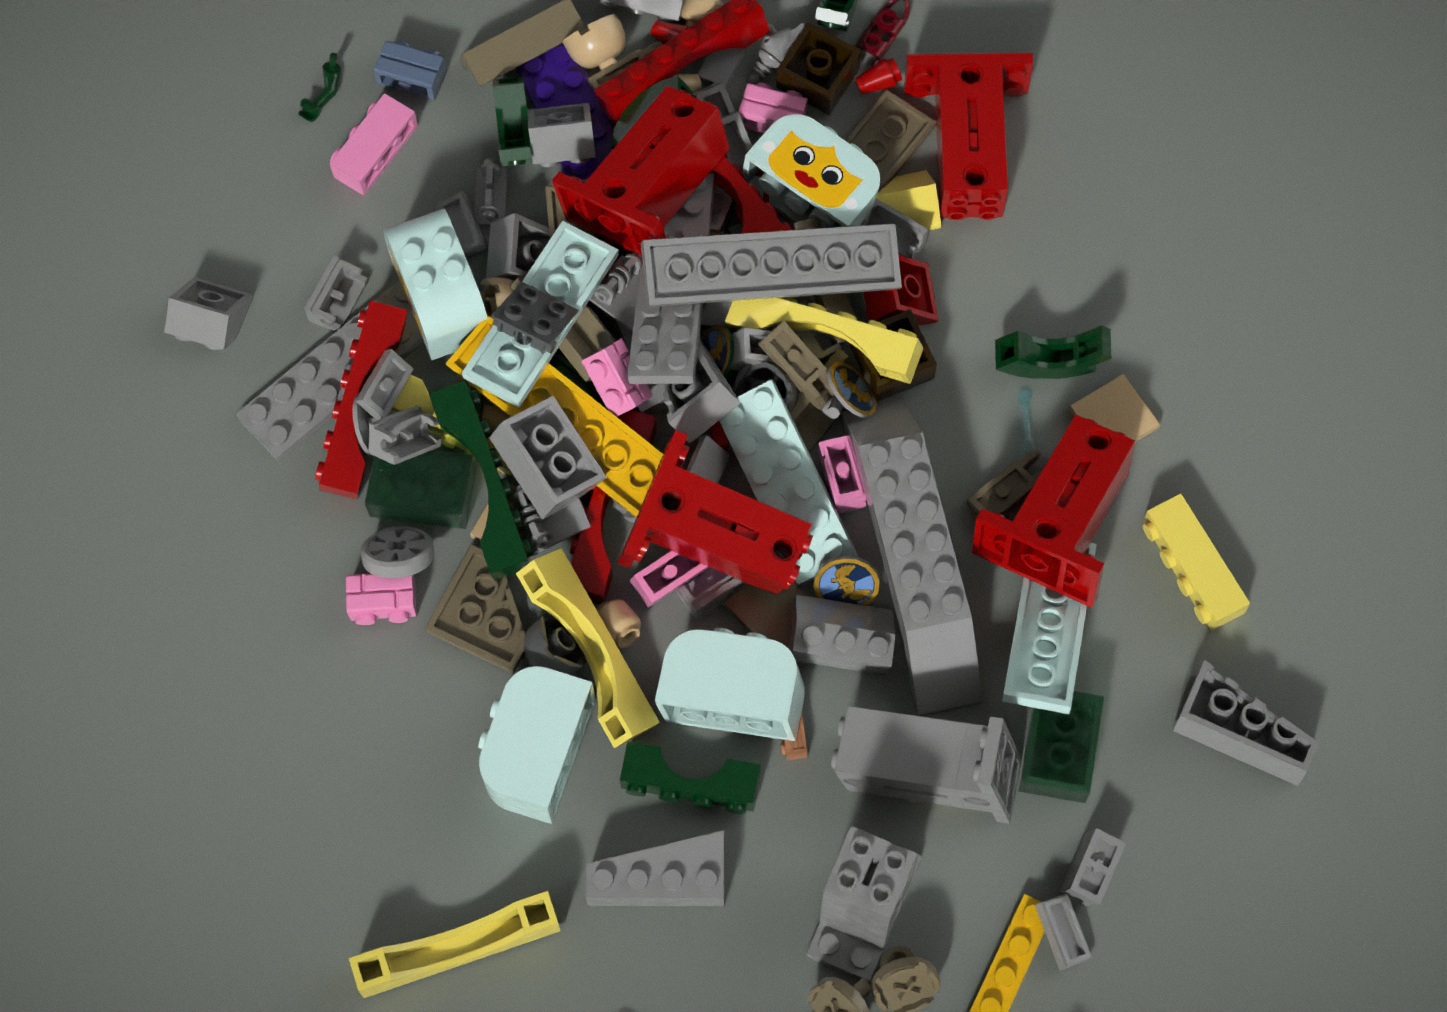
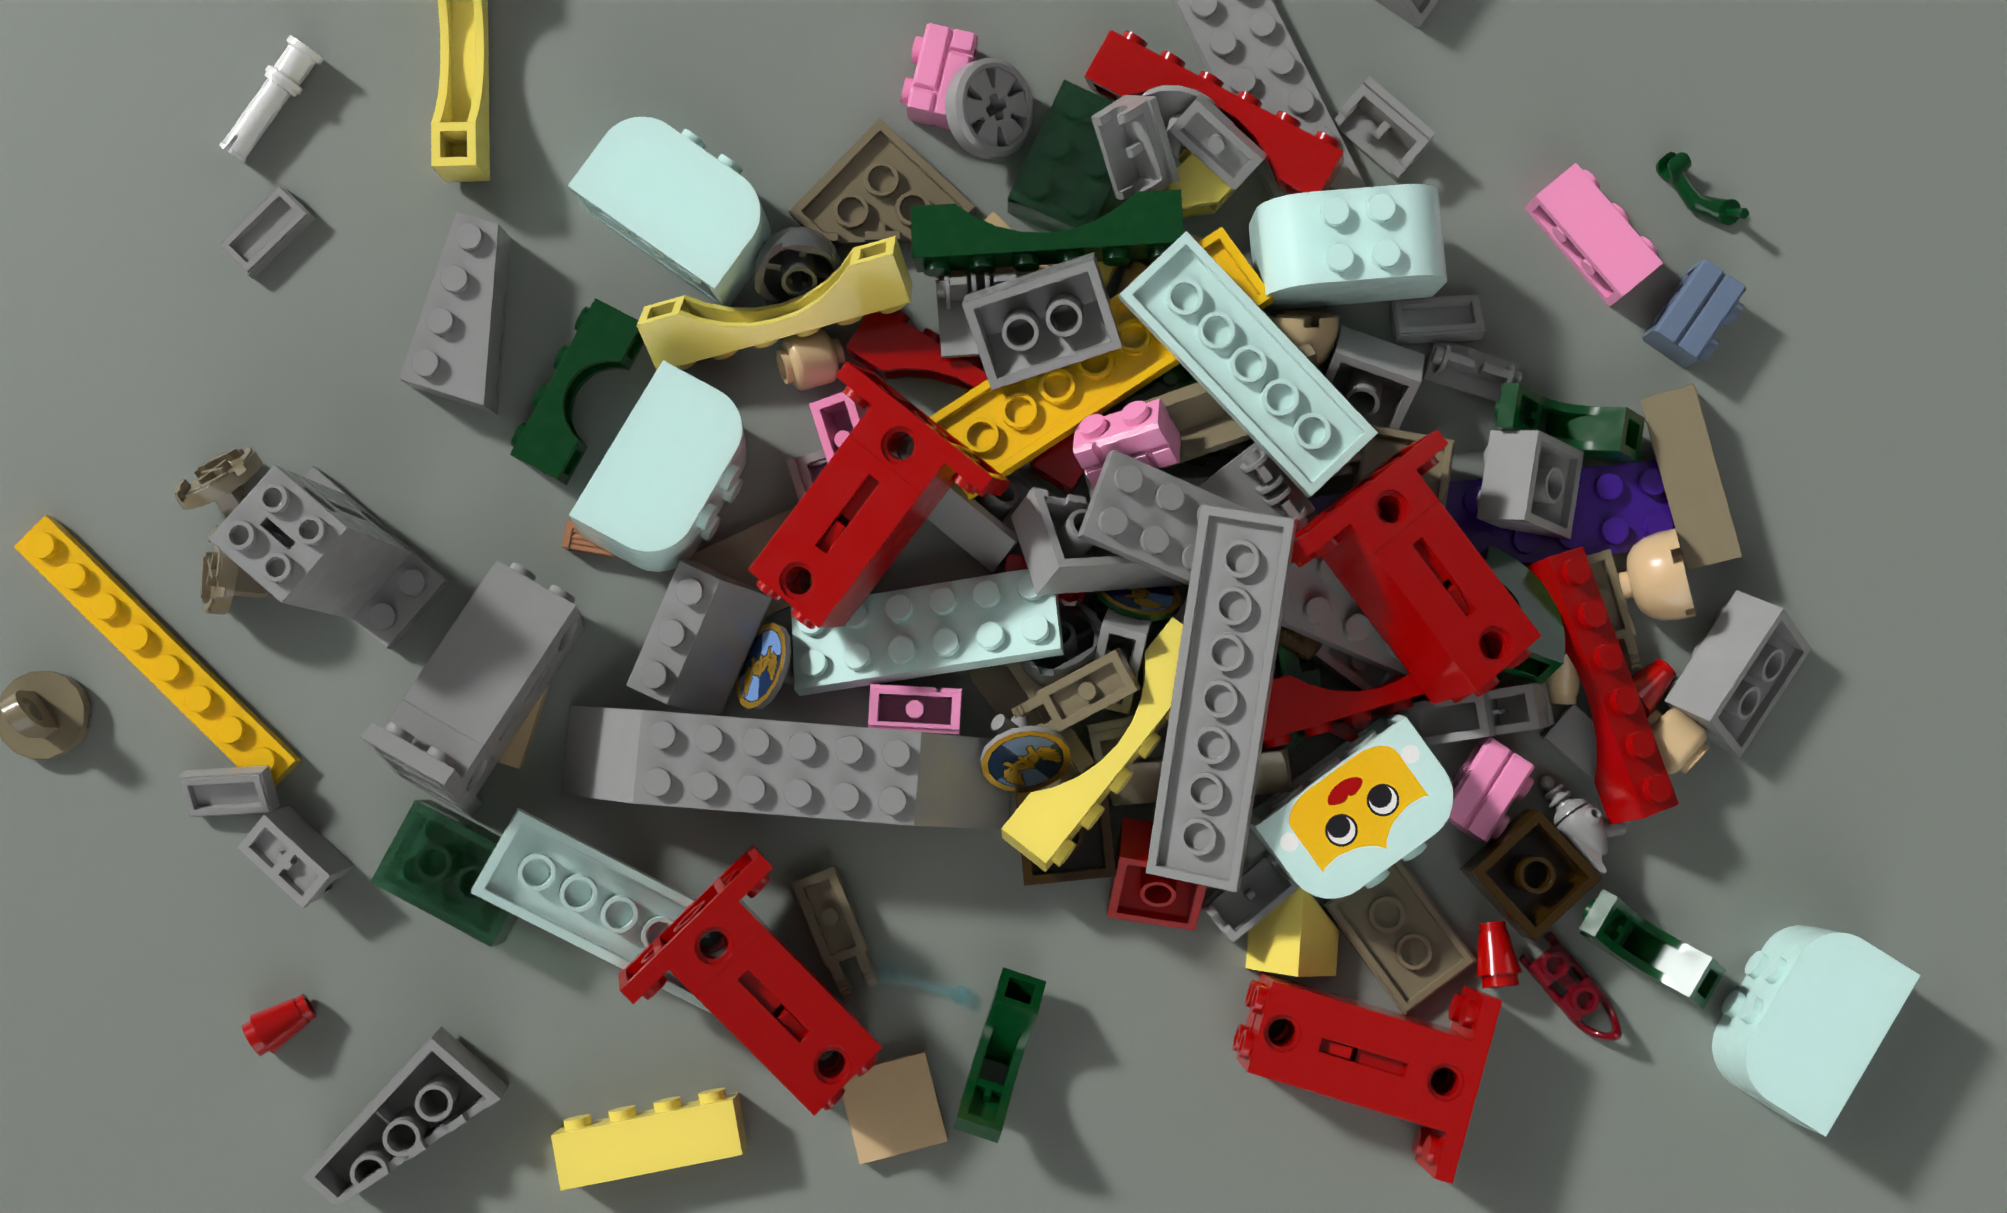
camera: 105 degrees right, 15 degrees up
(534, 315) = (1237, 347): dark grey hinge -> none
(1213, 841) = (278, 1024): none -> red cone

